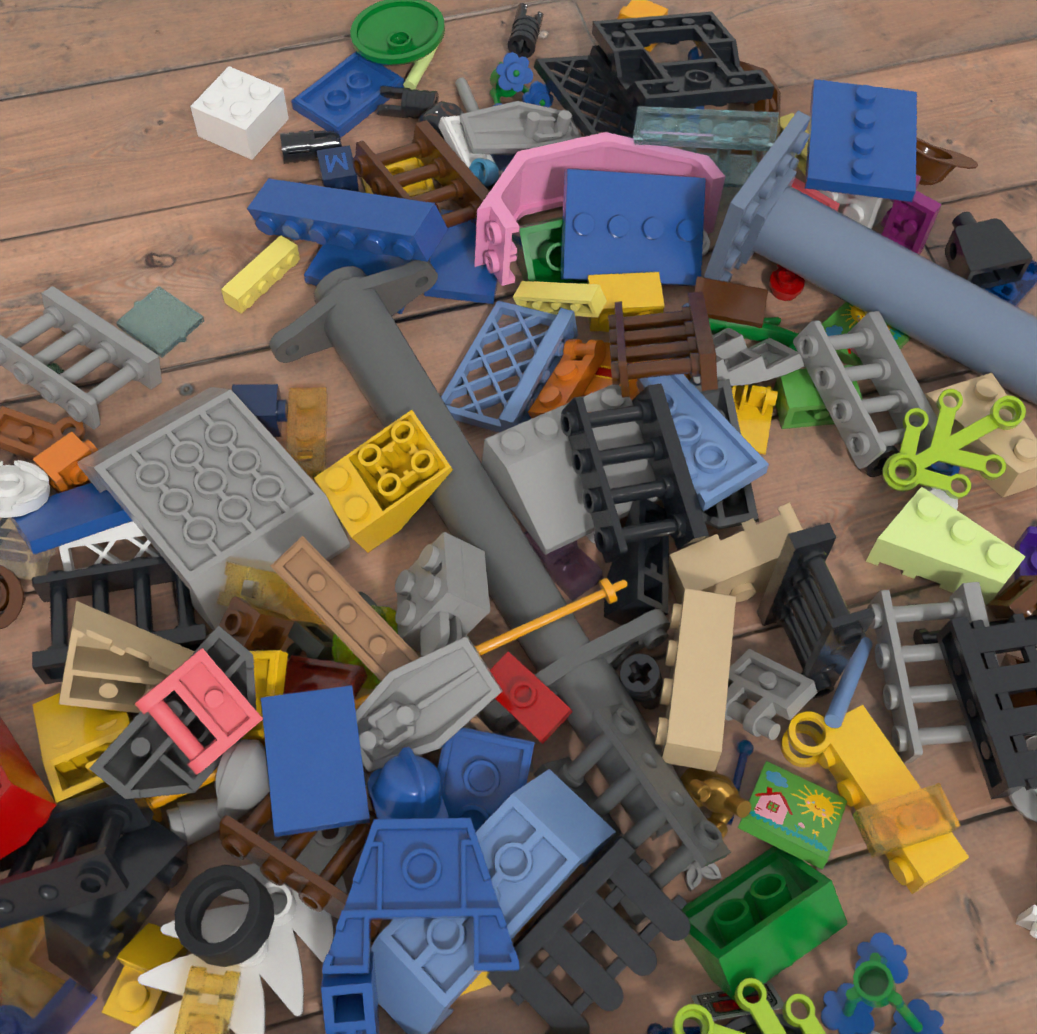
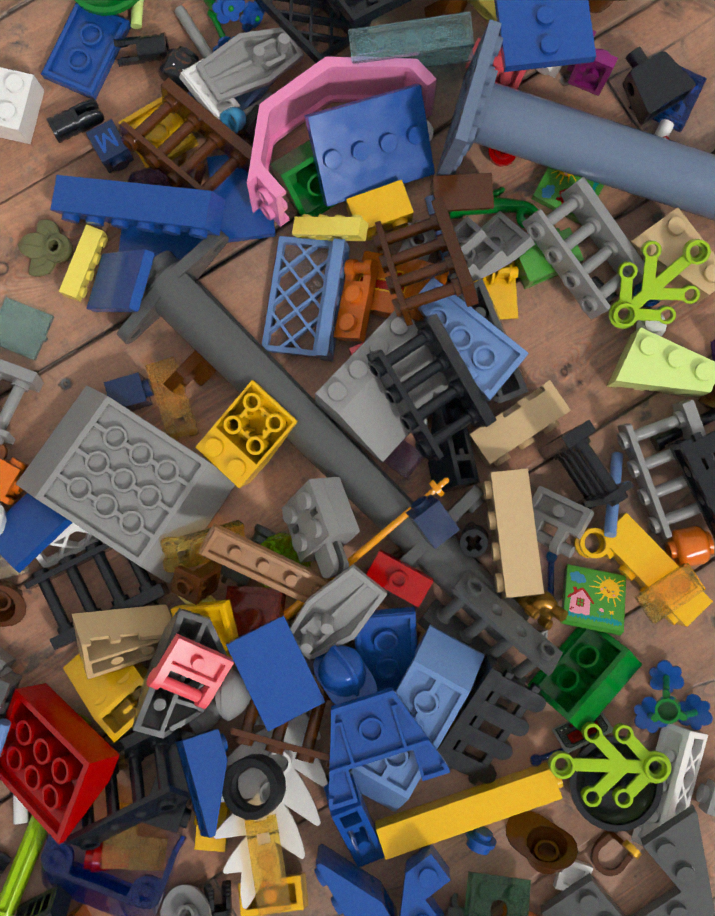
camera: 15 degrees left, 25 degrees up
(165, 861) = (204, 770): none -> blue slope
(225, 251) = (42, 247): none -> olive plate
(296, 287) = (120, 281): none -> blue tile
(341, 399) = (193, 368): none -> reddish brown bracket
(590, 619) = (432, 520): none -> dark blue brick
(954, 772) = (690, 546): none -> orange head

